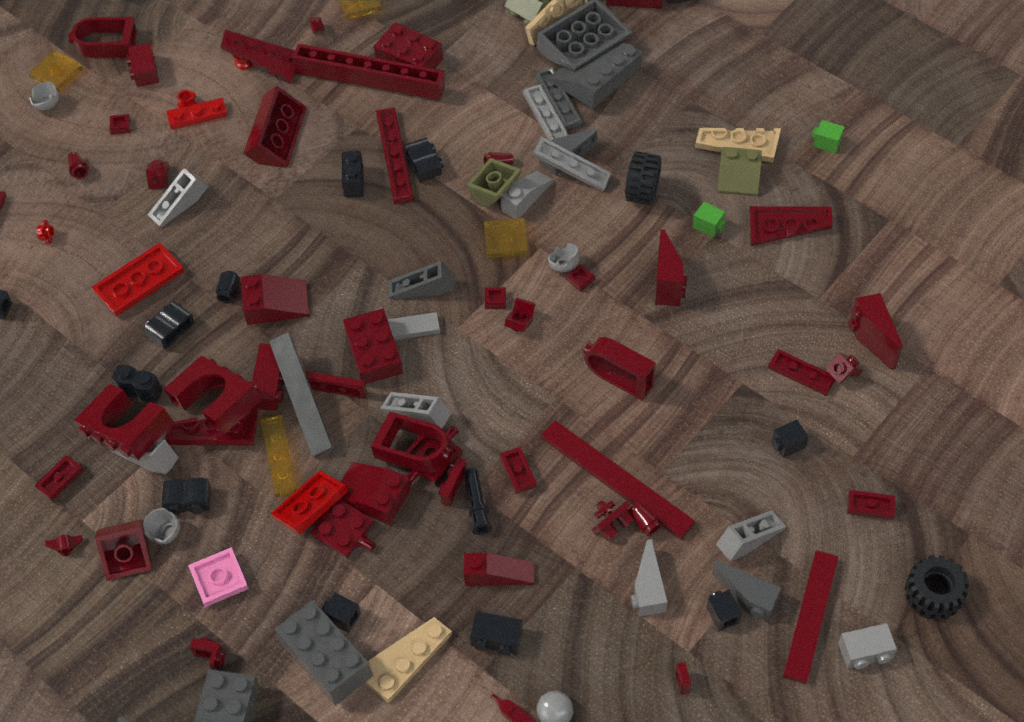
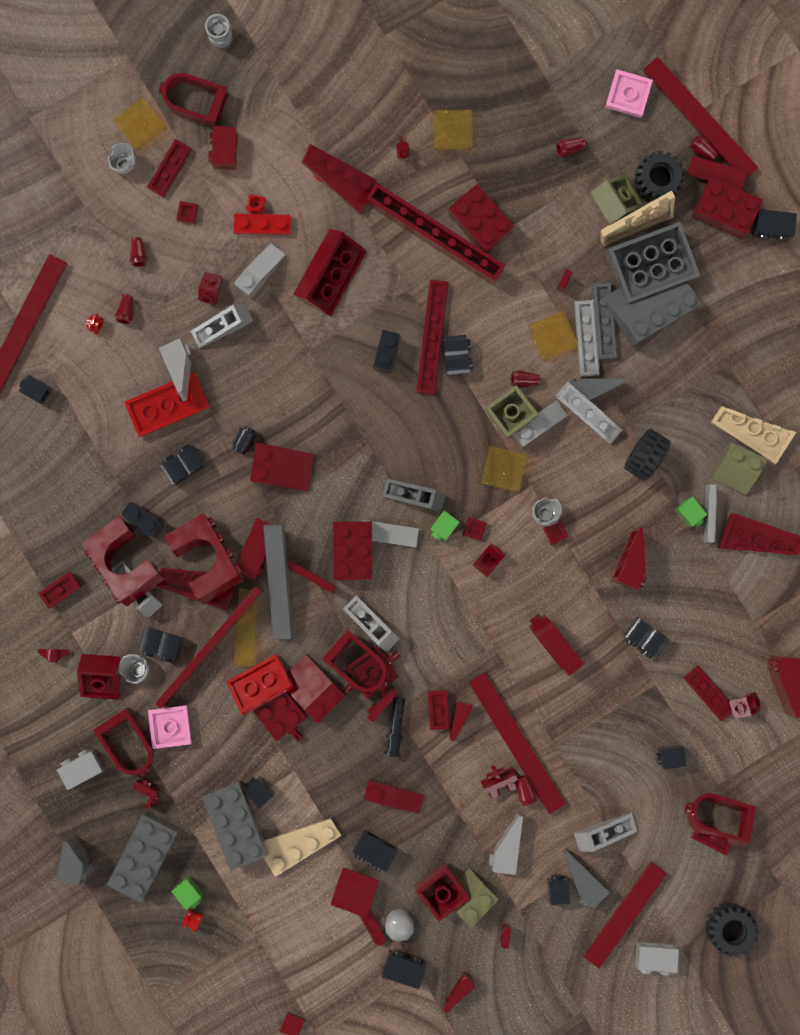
camera: 10 degrees right, 30 degrees up
(74, 214) = (124, 311): none -> dark red cone
(93, 96) = (169, 168): none -> dark red tile
(123, 651) = (80, 769): none -> light grey brick
(139, 238) = (178, 365): none -> light grey slope
(151, 589) = (113, 723): none -> dark red window
(202, 149) = (259, 271): none -> light grey slope
(242, 480) = (209, 647): none -> dark red tile
(462, 300) = (444, 526): none -> bright green brick
(488, 687) = (354, 892): none -> dark red tile
(506, 76) = (564, 280): none -> dark red tile
(513, 122) = (553, 335): none -> clear yellow plate
(544, 463) = (460, 715): none -> dark red slope
(588, 647) = (441, 891): none -> dark red slope
(627, 649) = (480, 900): none -> olive slope
(712, 338) = (646, 638): none -> black brick
(732, 222) = (710, 509): none -> light grey tile
(866, 464) = (745, 823): none -> dark red window

